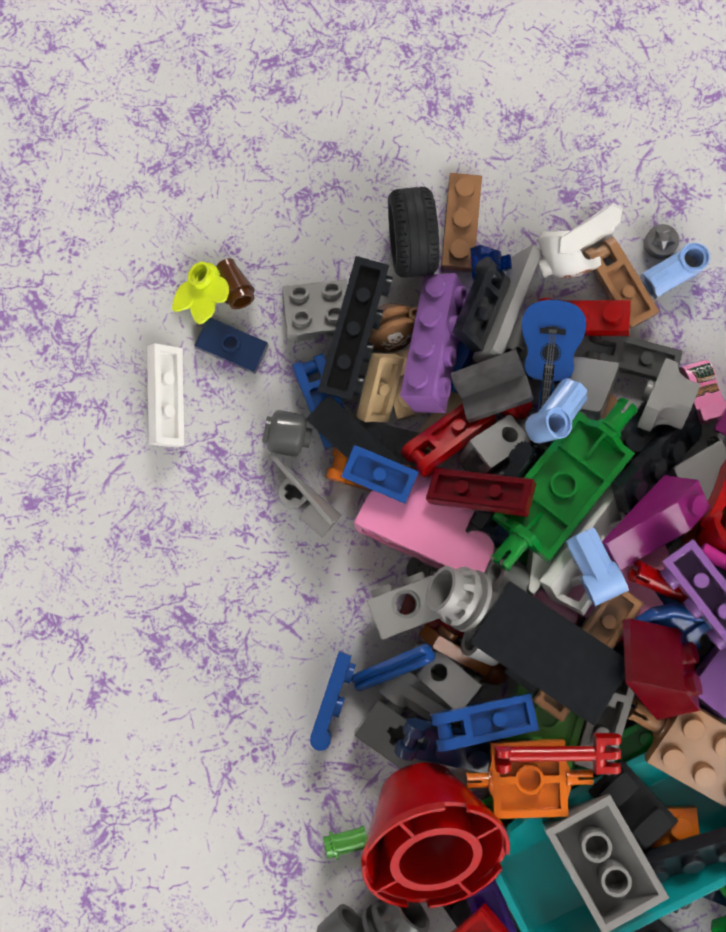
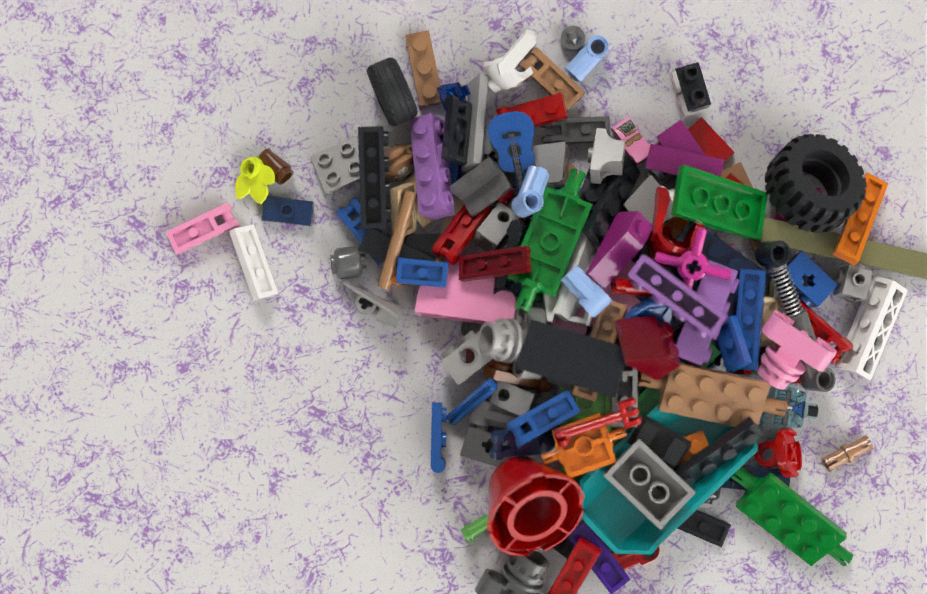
camera: 20 degrees left, 5 degrees up
(113, 333) = (201, 229): none -> bright pink plate
(360, 421) = (397, 240): none -> medium nougat piece

